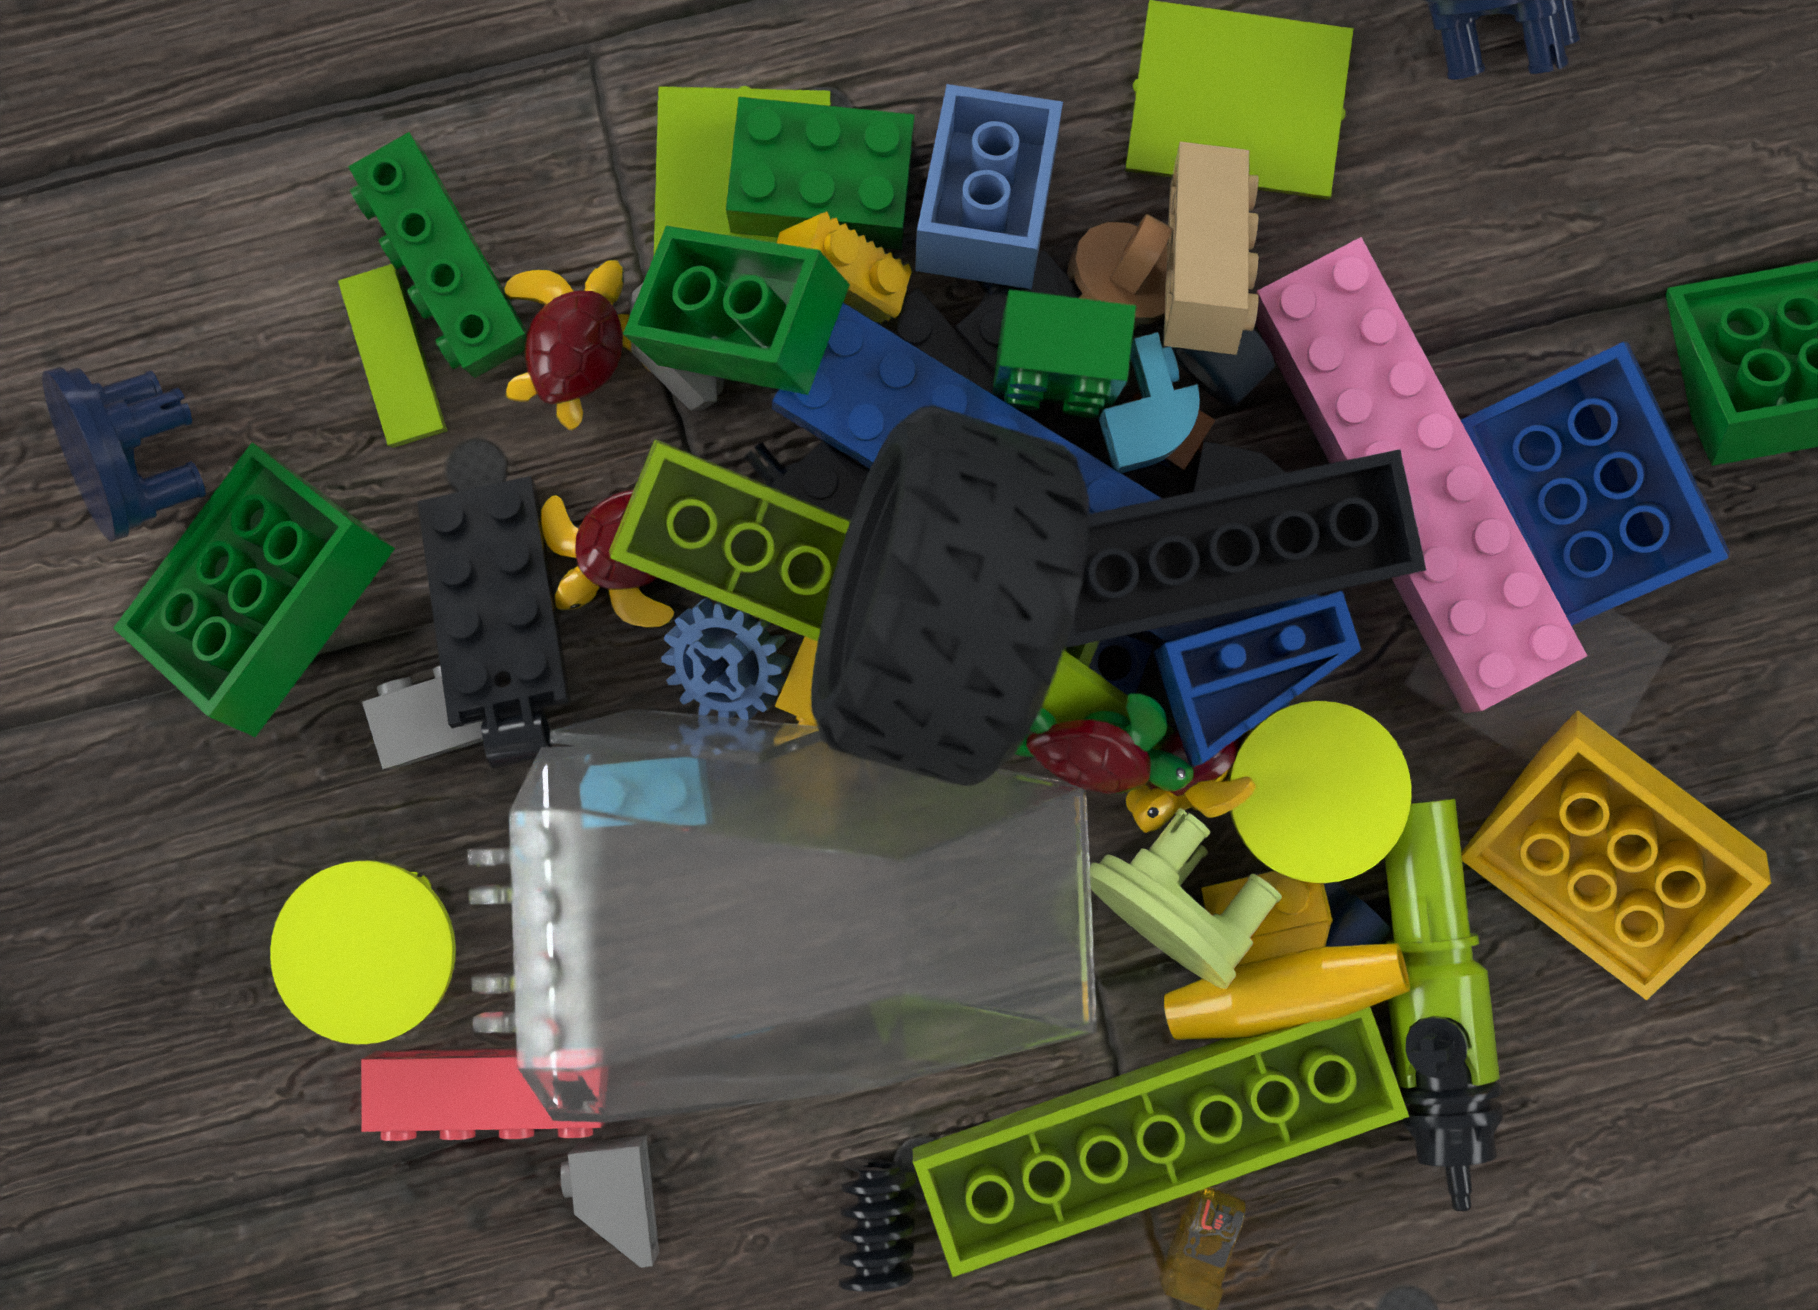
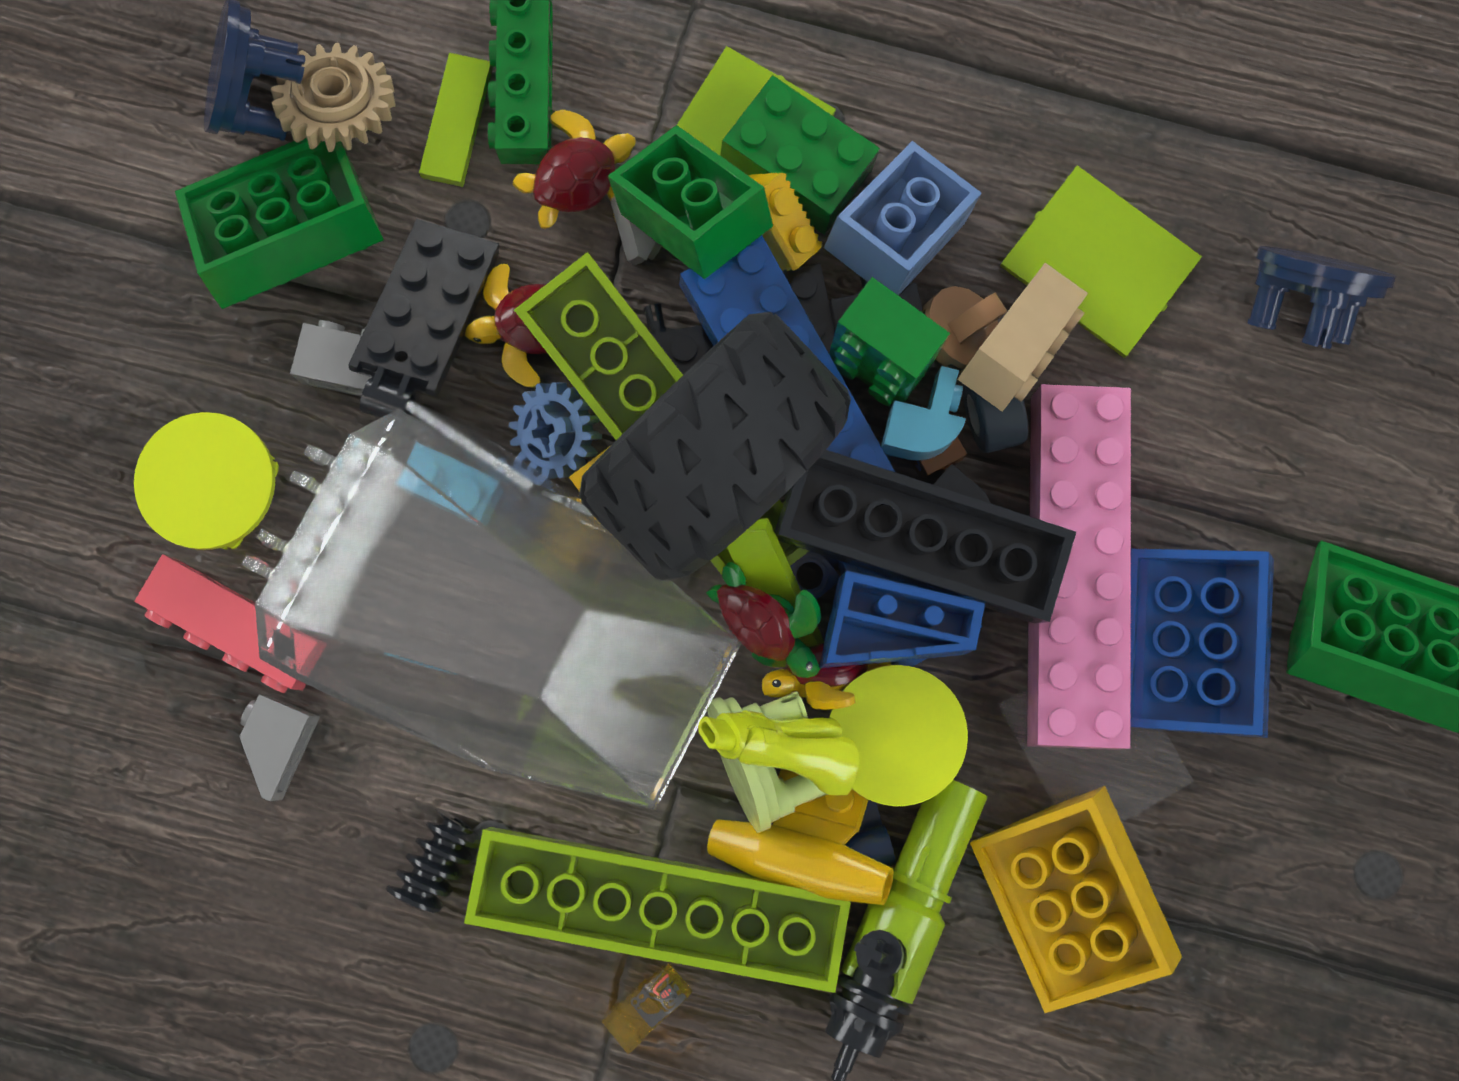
camera: 25 degrees right, 5 degrees down
(272, 405) = (336, 98): none -> tan gear
(1218, 873) = (799, 745): none -> neon yellow piece

